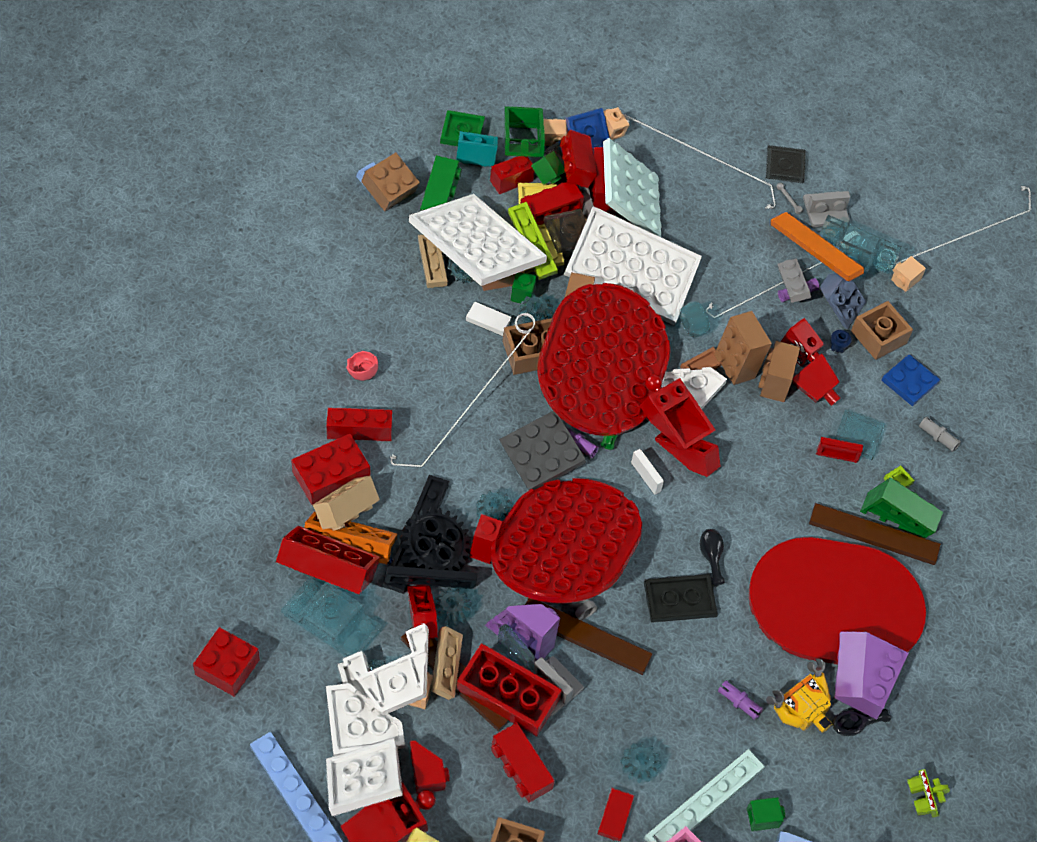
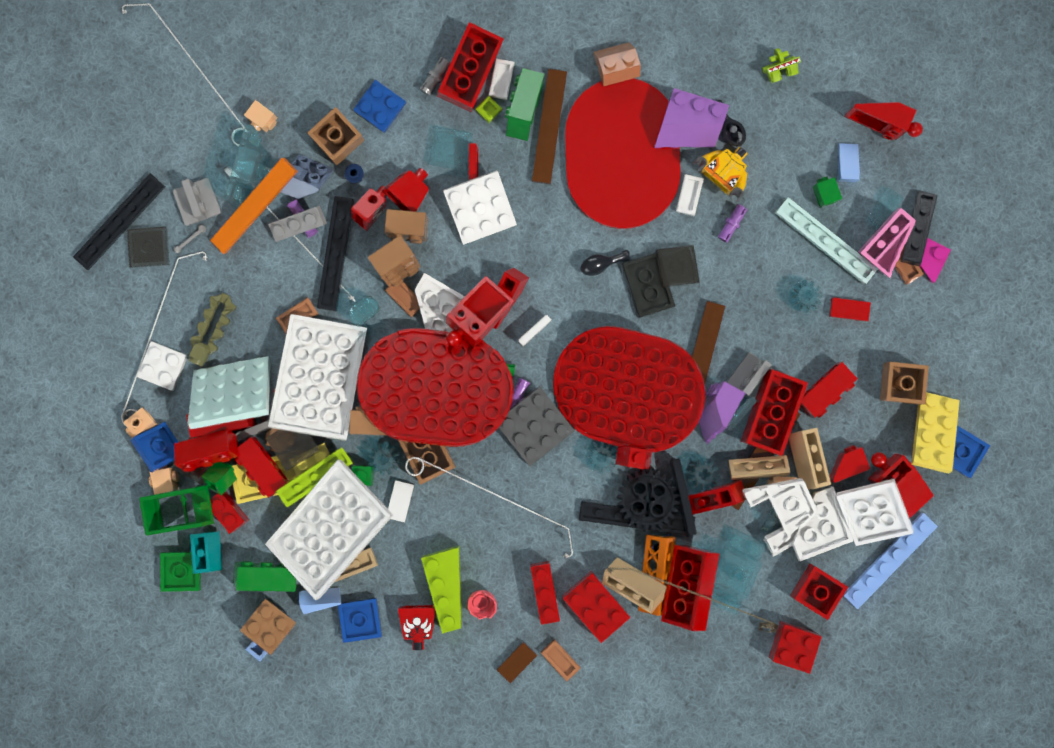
camera: 90 degrees left, 30 degrees up
(257, 643) = (761, 625): none -> dark tan piece
(281, 429) = (560, 660): none -> nougat tile
(284, 698) = (818, 591): none -> red brick
(291, 388) = (516, 662): none -> reddish brown tile
(358, 306) = (417, 623): none -> torso
(375, 260) = (360, 620): none -> blue plate
(389, 336) = (444, 581): none -> lime wedge
(405, 230) = (329, 599): none -> light blue slope
(444, 721) = (809, 458): none -> tan brick
(666, 153) = (162, 366): none -> white plate
(675, 182) = (201, 351): none -> olive sword
(697, 629) = (677, 266): none -> clear smoke tile
(703, 275) = (304, 308): none -> nougat tile
(765, 314) = (335, 254): none -> black tile
(779, 662) = (689, 195): none -> white tile
(791, 444) = (480, 207): none -> white plate
(814, 147) = (119, 221): none -> black tile
(940, 611) = (617, 63): none -> nougat slope
(941, 499) = (501, 79): none -> white tile
(947, 464) = (470, 67): none -> red brick

